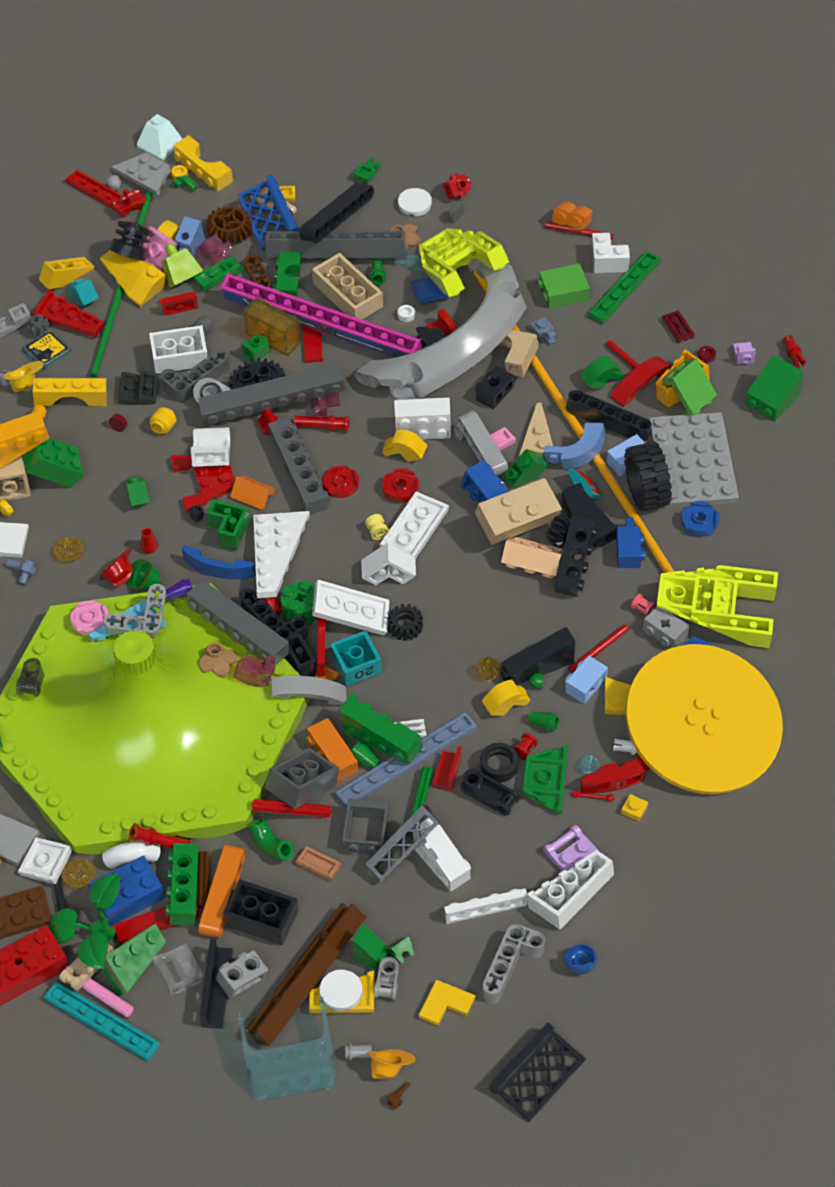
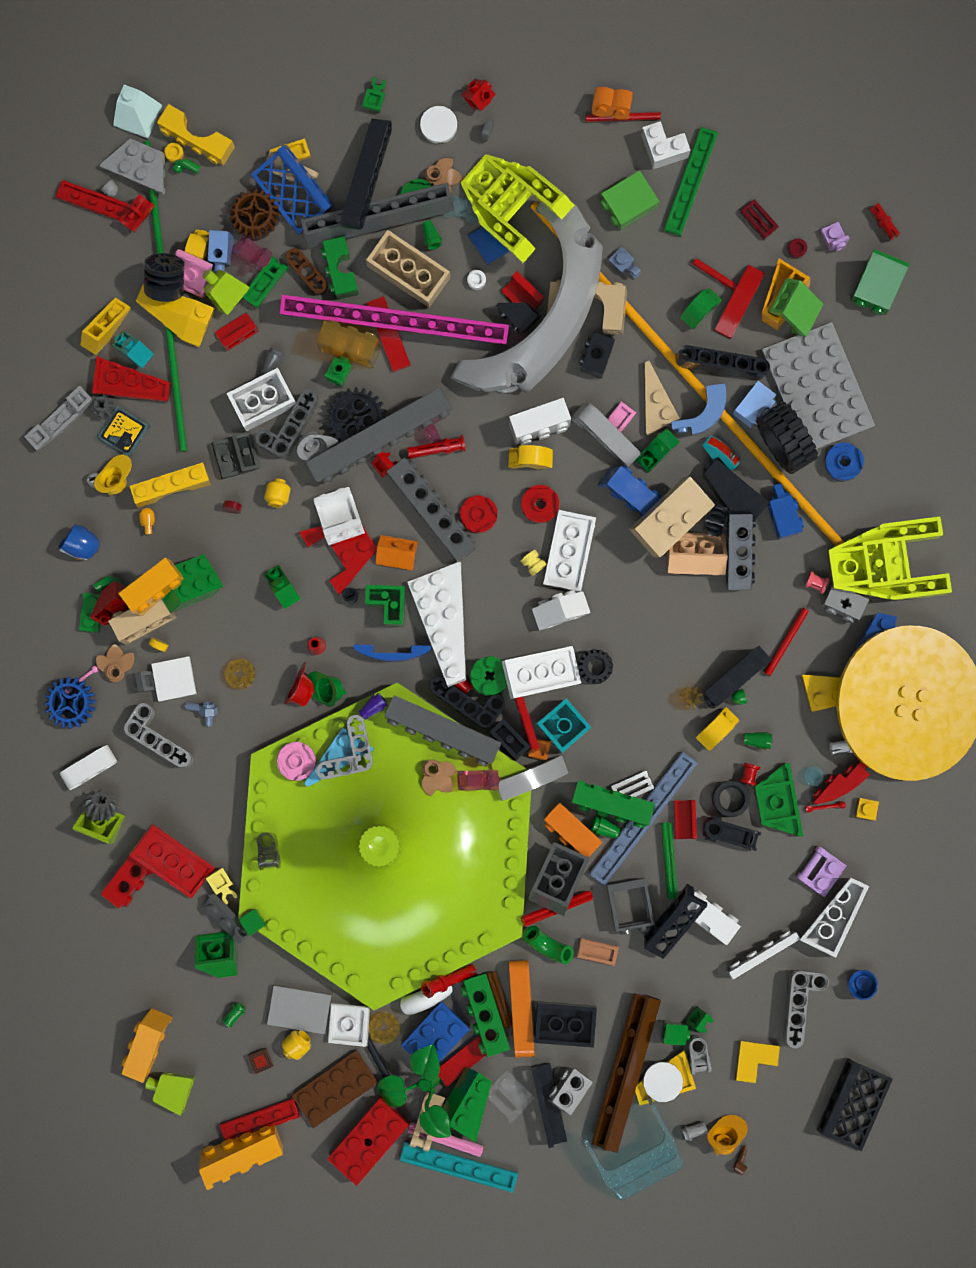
camera: 15 degrees left, 30 degrees up
(586, 679) = (785, 684): light blue brick -> none

